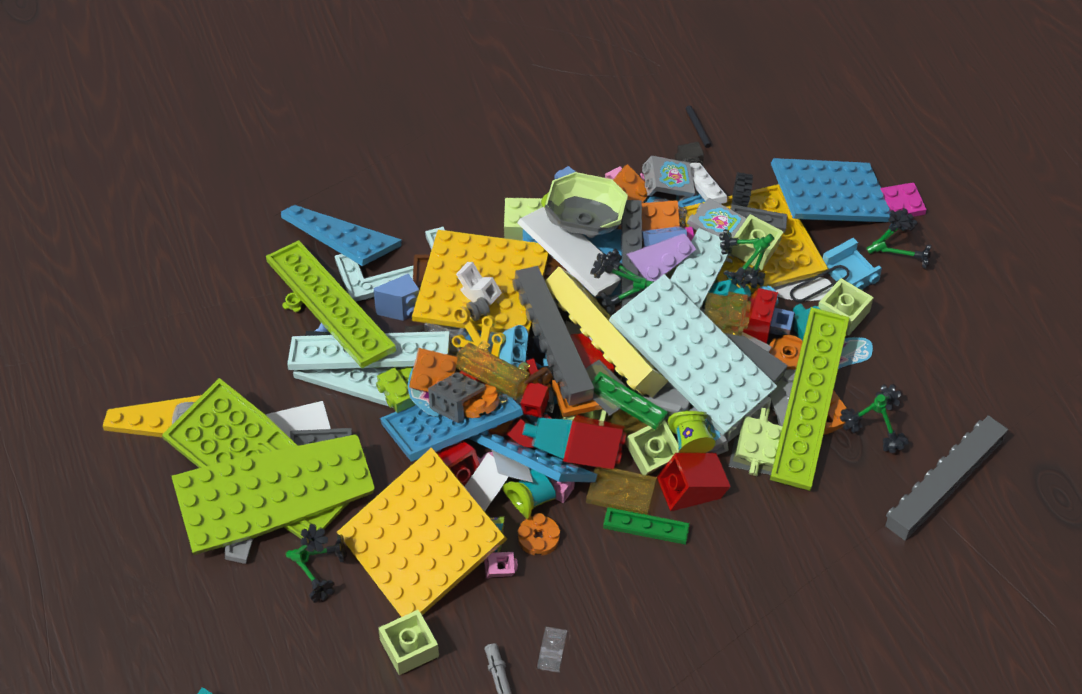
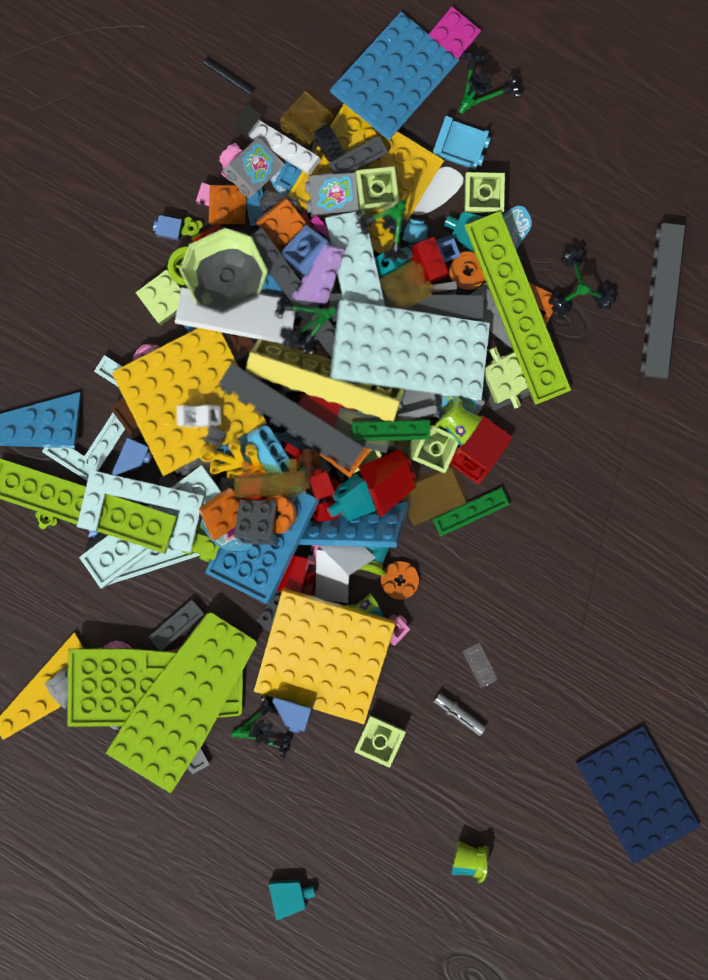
camera: 35 degrees left, 35 degrees up
(304, 417) = (142, 619): white sticker -> none
(355, 565) = (292, 714): none -> medium blue slope
(384, 316) = (101, 484): none -> light aqua plate
(726, 173) = (304, 118): none -> clear yellow plate
(821, 290) = (438, 176): black piece -> none

